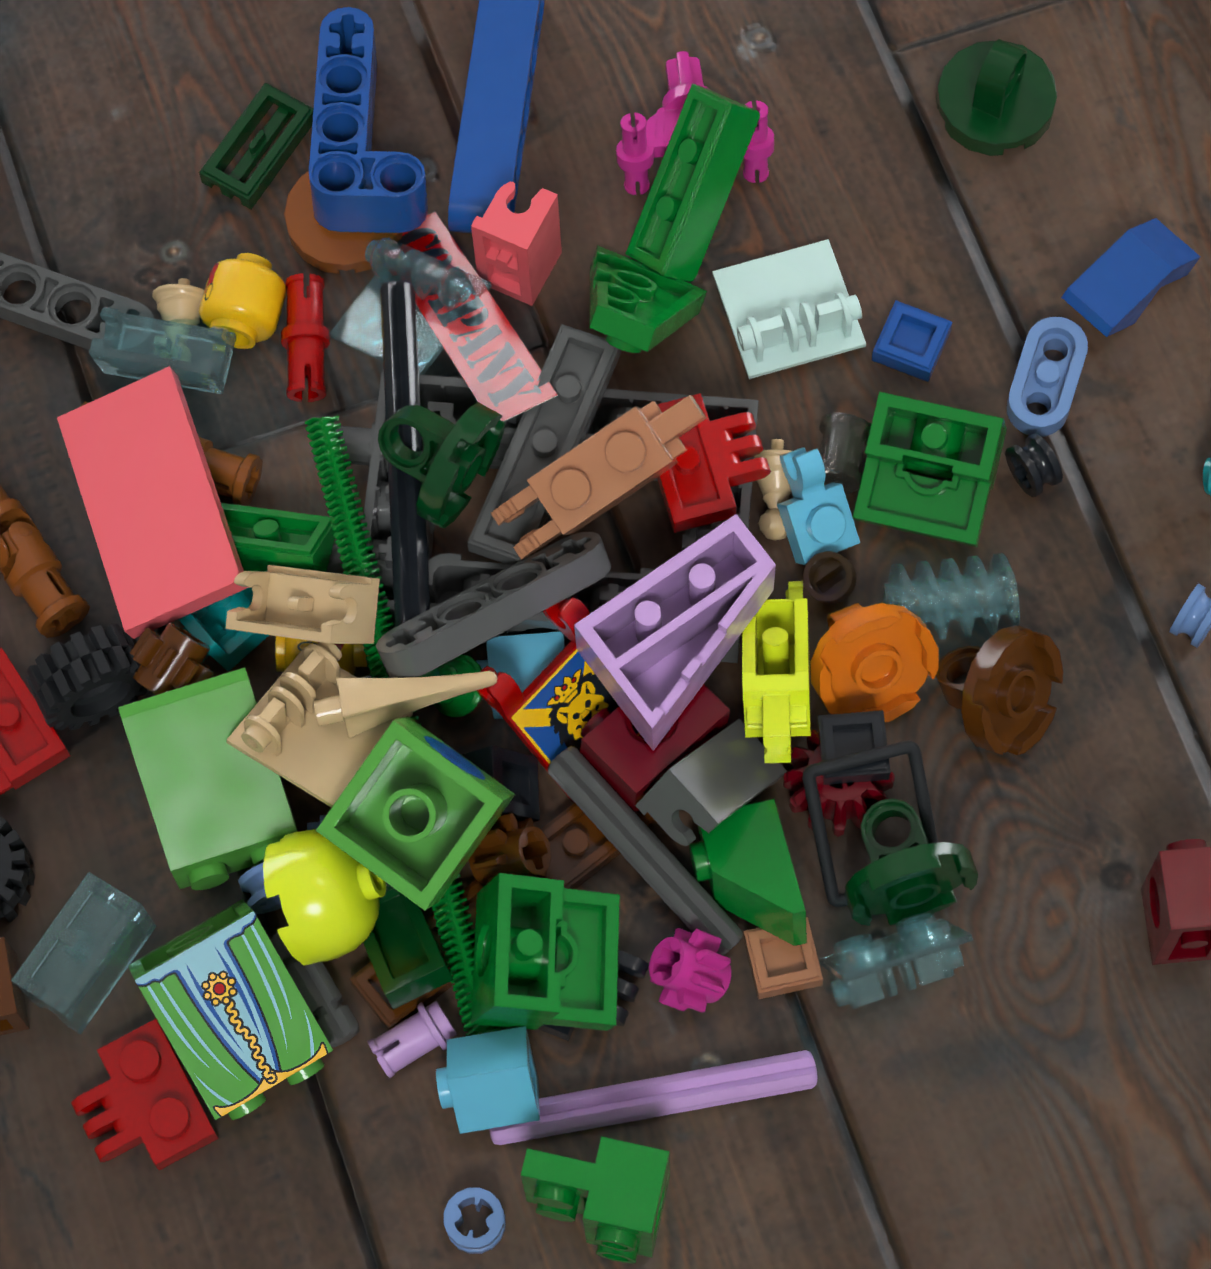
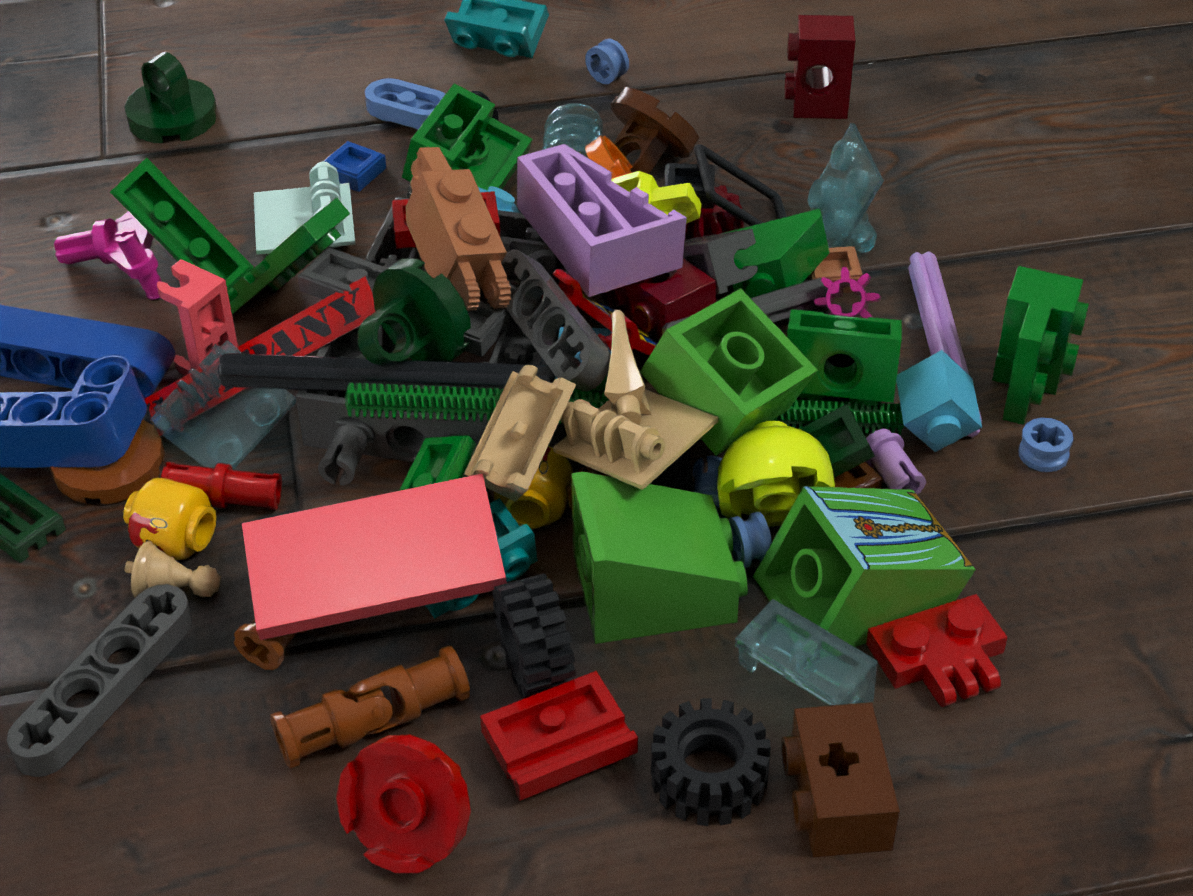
camera: 85 degrees left, 25 degrees down
(144, 345) = (206, 563): clear light blue hinge -> none
(170, 659) = (545, 545): reddish brown gear -> none
(906, 877) = (783, 174): dark green tile -> none
(1129, 276) = (347, 59): blue slope -> none

